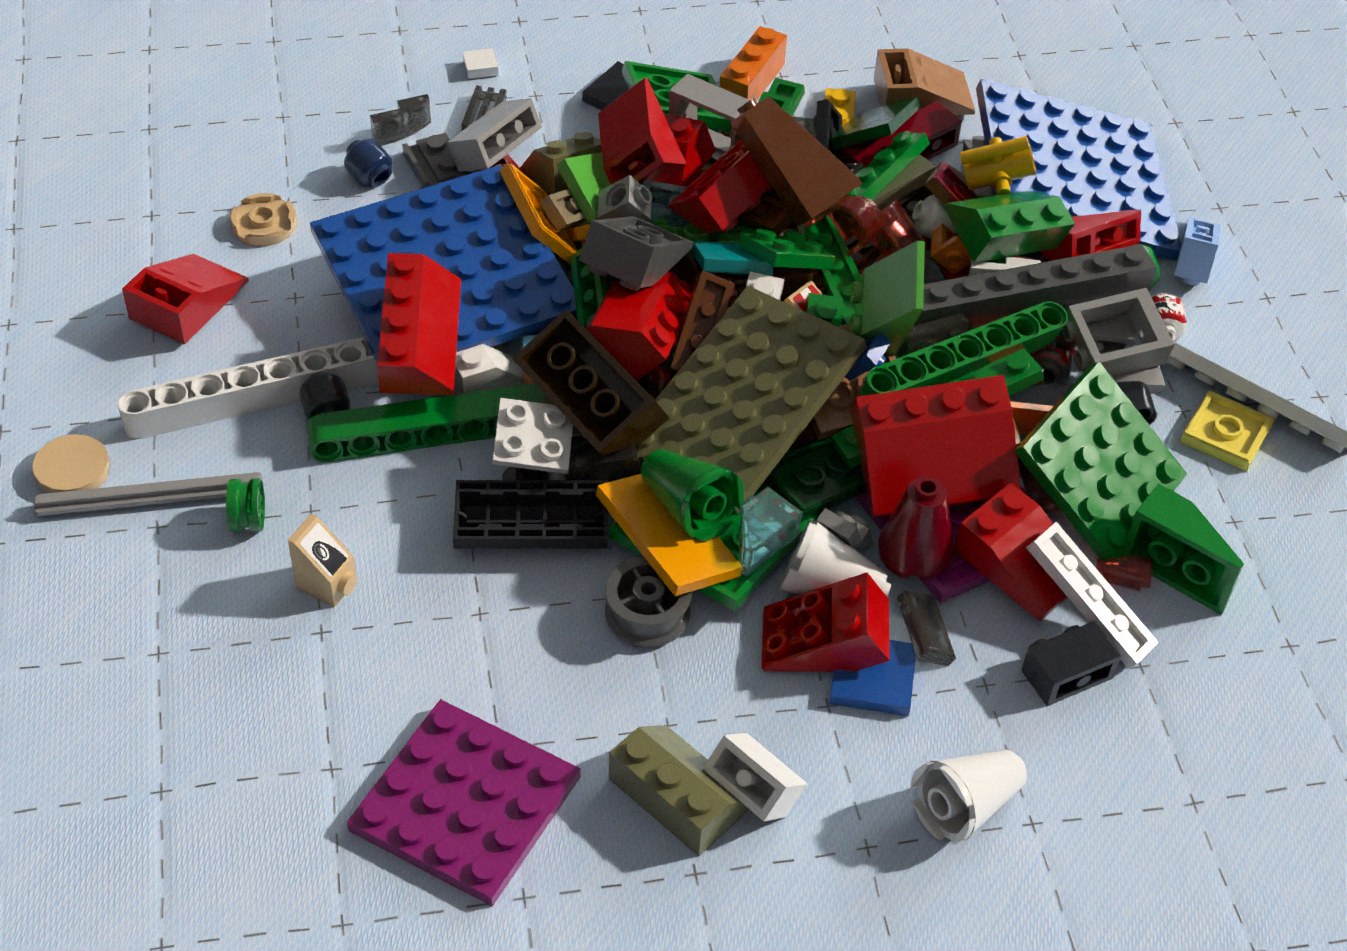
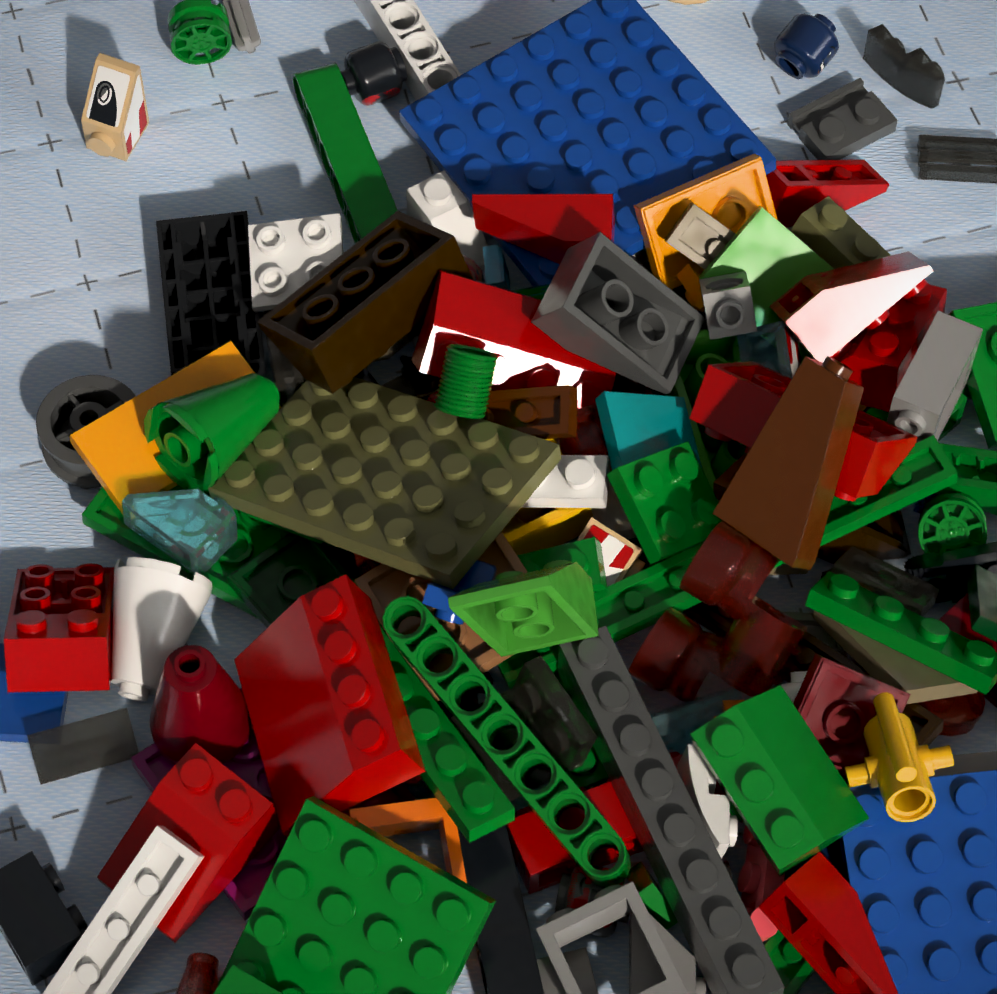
camera: 85 degrees right, 10 degrees up
(418, 327) = (449, 113): red slope -> none
(494, 135) = (881, 163): light grey brick -> none
(543, 278) = (544, 221): none -> red slope
(688, 326) = (465, 381): none -> green piece
(850, 528) = (204, 622): light grey slope -> none

